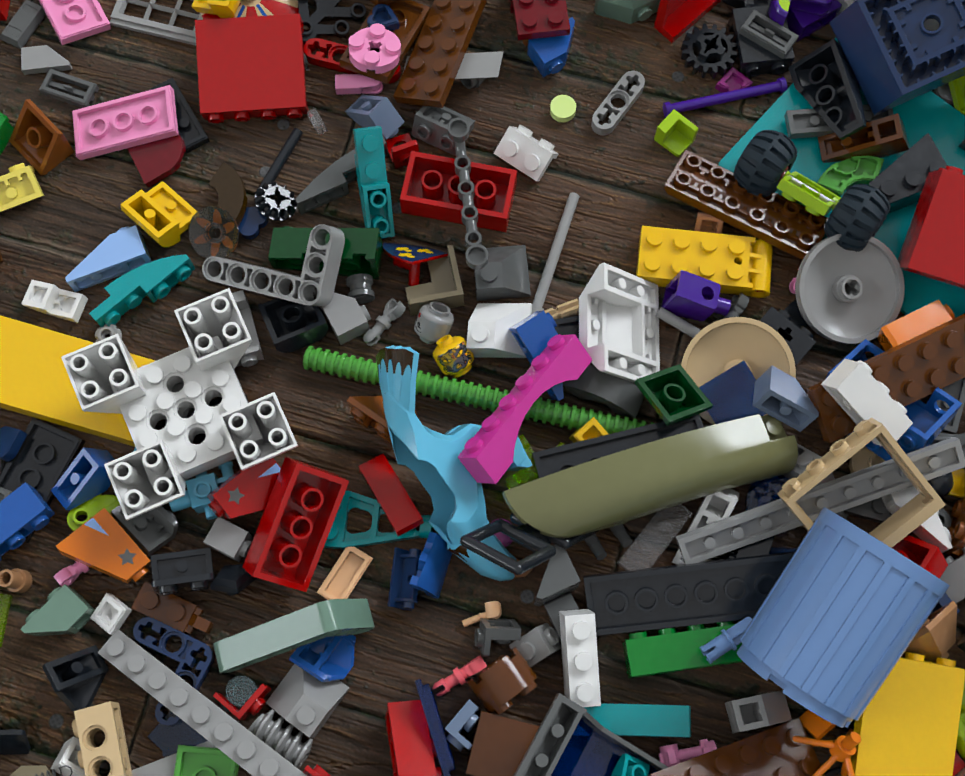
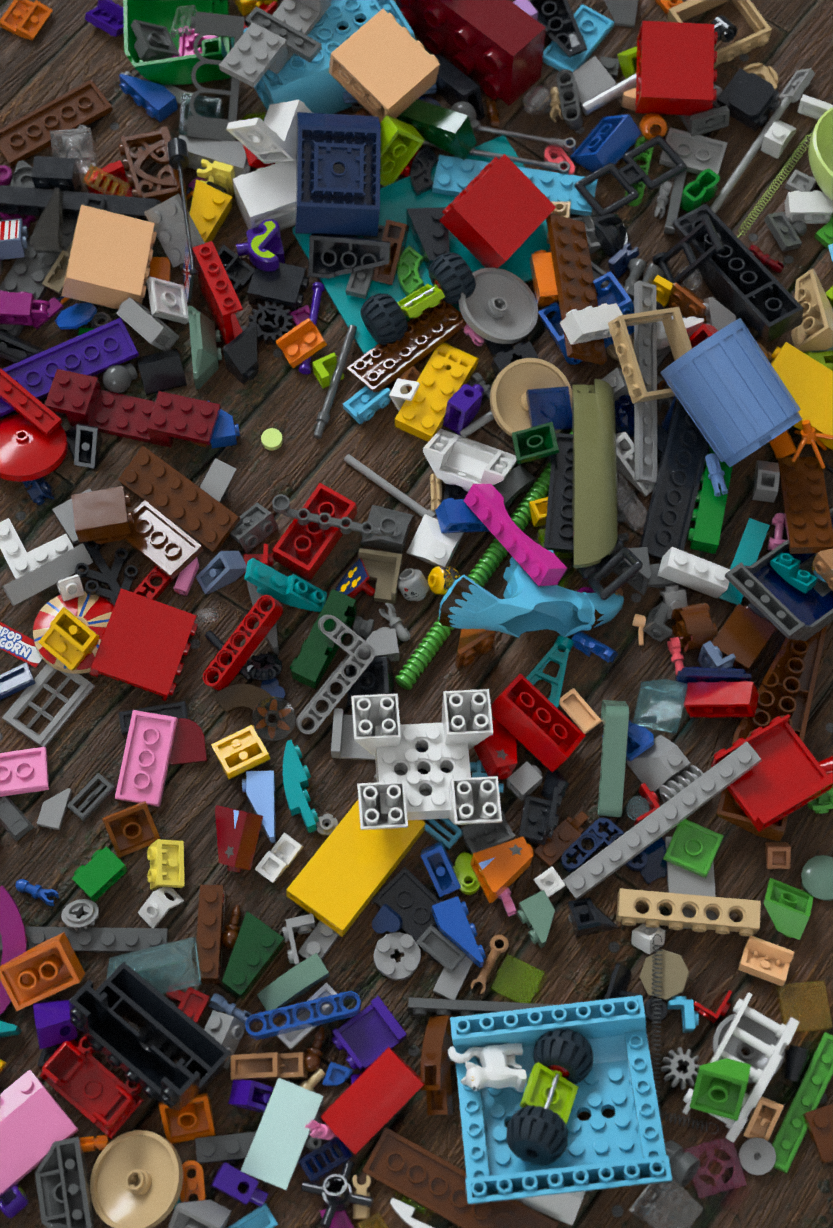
camera: 70 degrees left, 5 degrees down
(58, 244) = (236, 837): none -> dark red slope
(288, 164) = (253, 639): none -> red beam
(374, 37) = (168, 537): bright pink plate -> none
(383, 15) = (146, 535): dark blue tile -> none
(386, 673) = (660, 704): none -> clear light blue slope
(390, 494) = (532, 658): red tile -> none
(404, 566) = (588, 665): dark blue hinge -> none
(526, 152) = (298, 476): white bracket -> none
(614, 151) = (323, 416): none -> dark grey bar
(618, 91) = (284, 409): light grey beam -> none
(648, 188) = (365, 403): none -> medium azure bracket
(653, 35) = (243, 354): none -> black slope
(679, 219) = (400, 393): none -> white bracket
(696, 90) = (301, 342): none -> orange bracket
(766, 37) = (283, 279): dark grey tile -> none
(784, 399) = (566, 374): sand blue slope -> none

